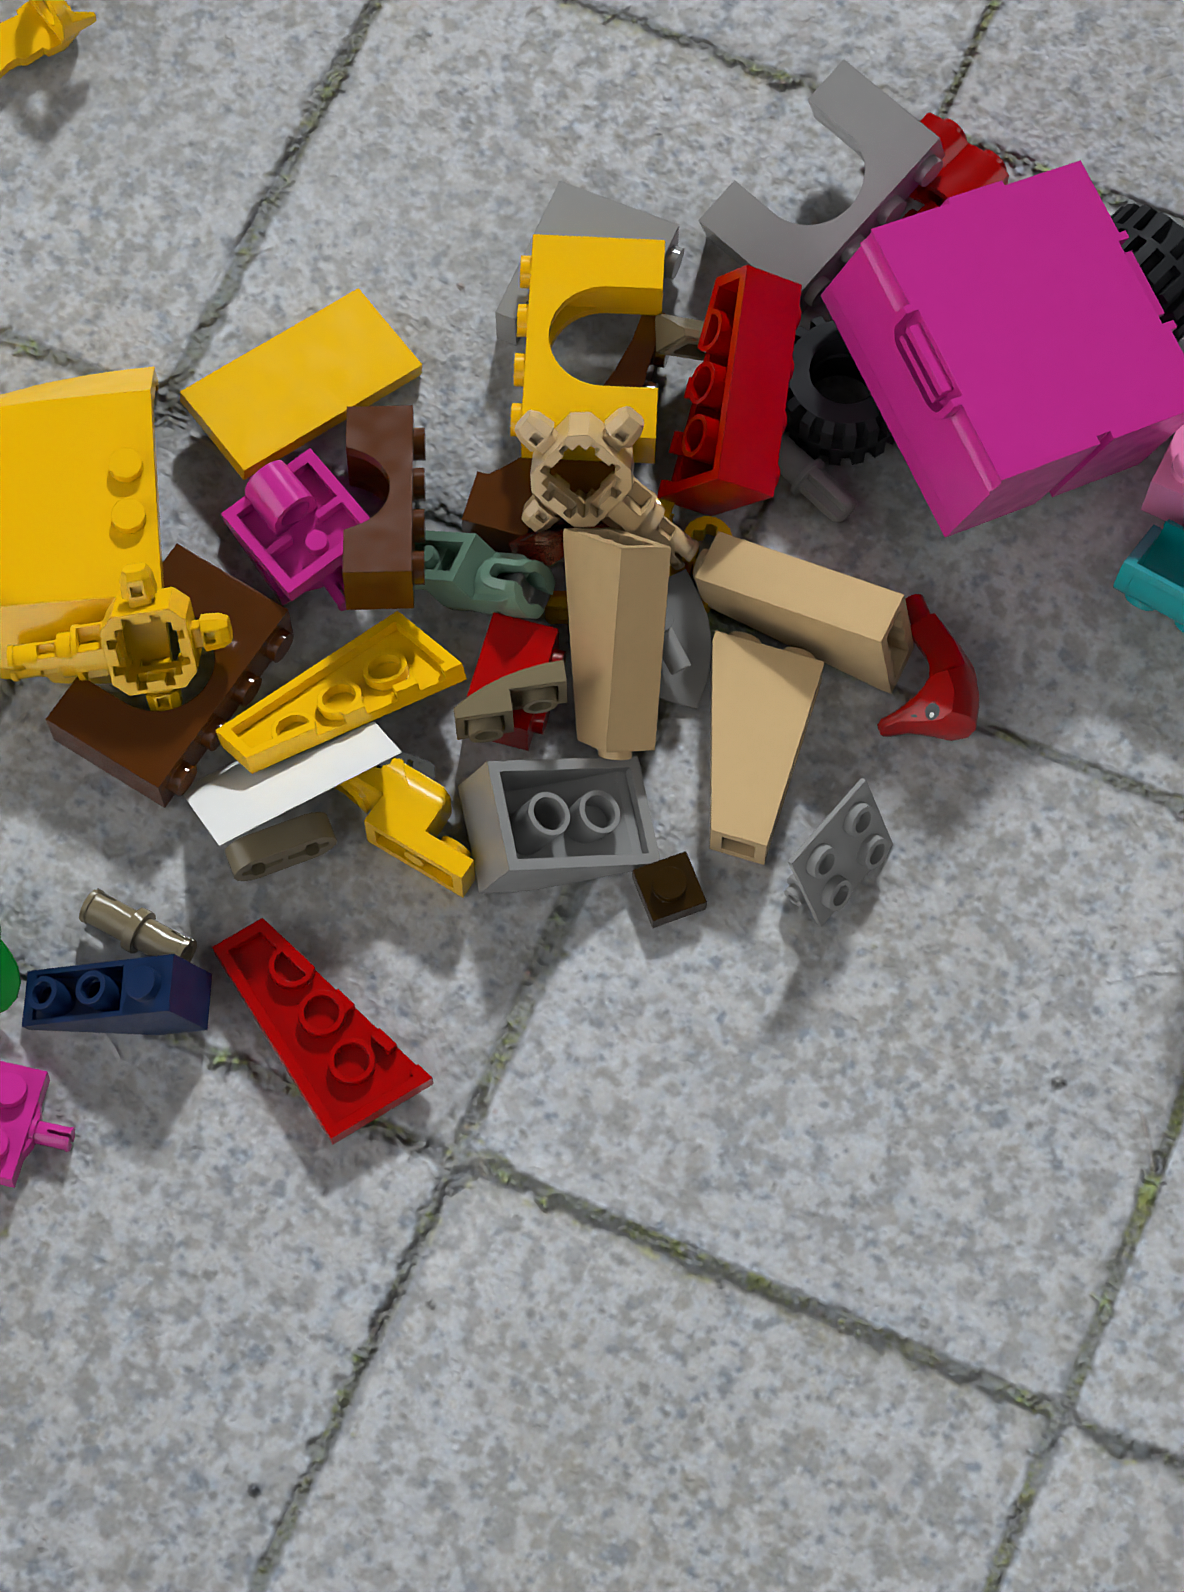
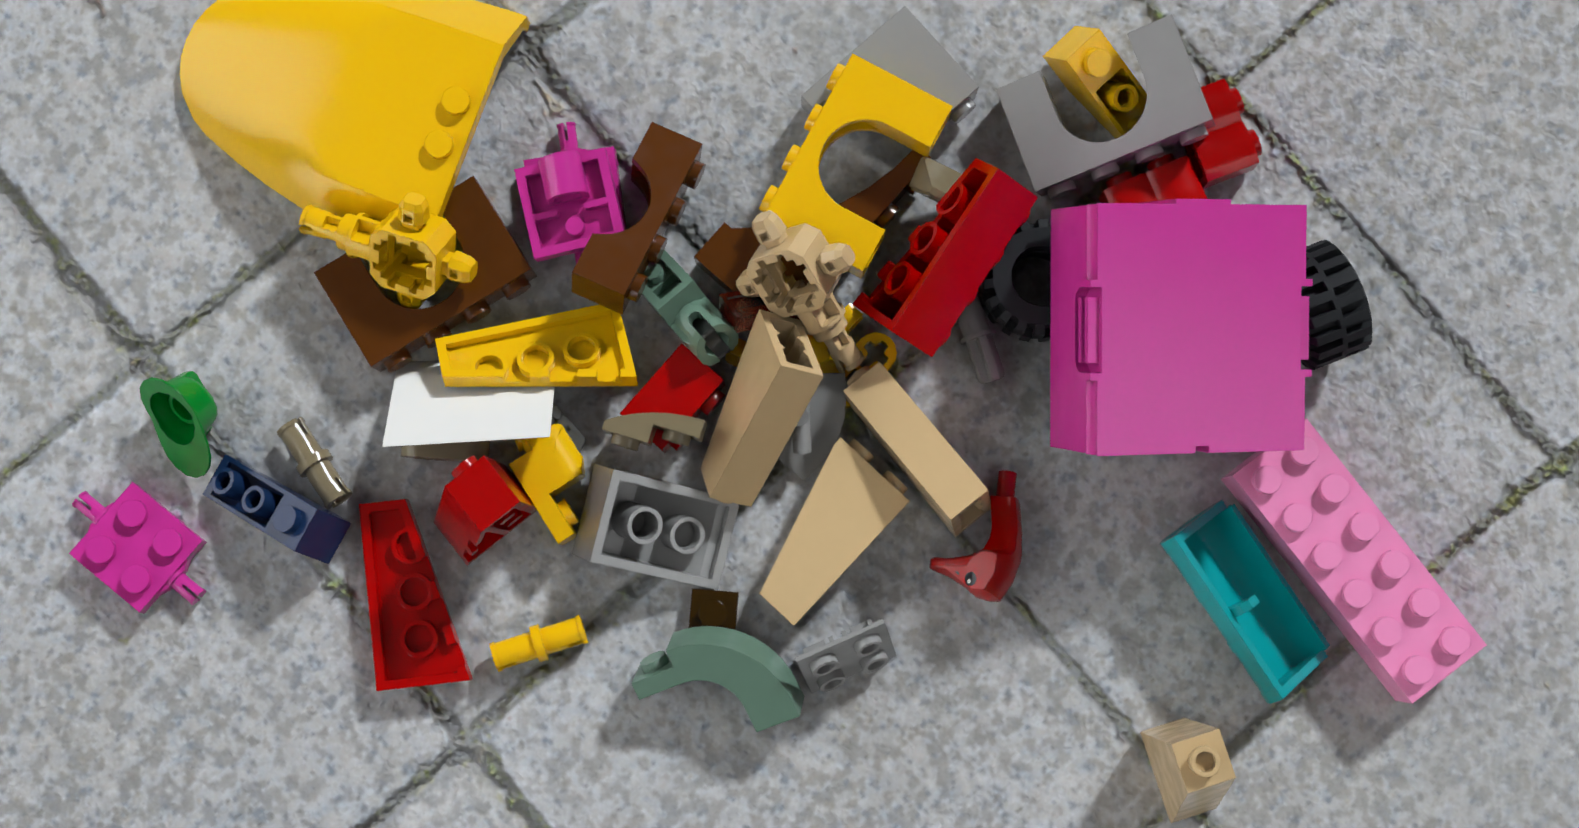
camera: 30 degrees right, 15 degrees up
(300, 383) = (631, 80): yellow tile -> none
(357, 873) = (481, 506): none -> red wedge
(489, 1006) = (538, 643): none -> yellow pin
(715, 913) = (728, 659): none -> sand green arch
(797, 169) = (1098, 78): none -> yellow slope

